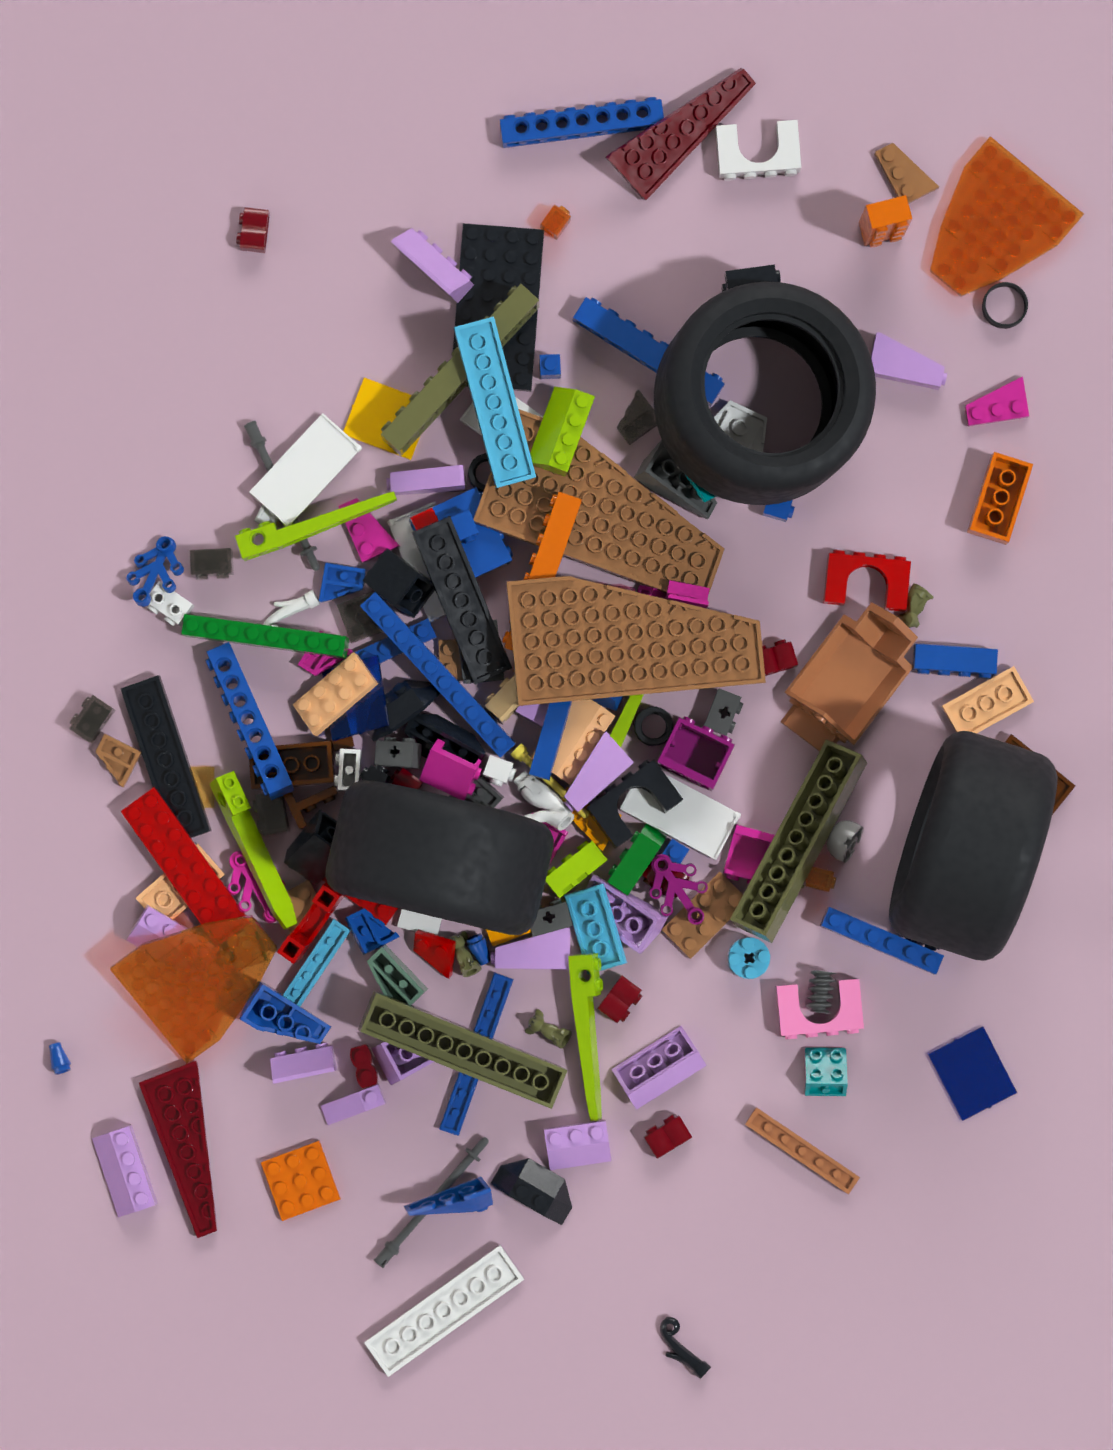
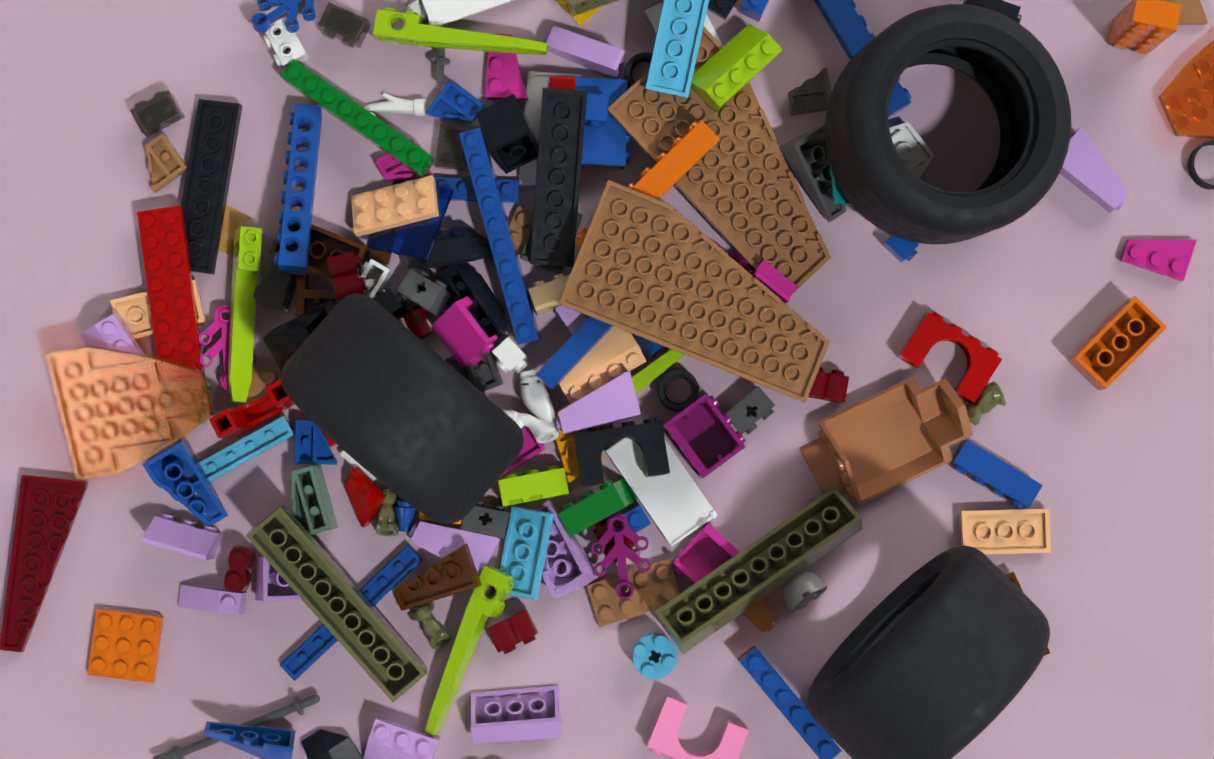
camera: 30 degrees right, 0 degrees up
(328, 774) = (346, 275): none -> dark red brick
(521, 754) = (540, 352): light yellow piece -> none
(539, 986) = (445, 578): none -> reddish brown wing
(820, 991) = (706, 723): dark grey piece -> none

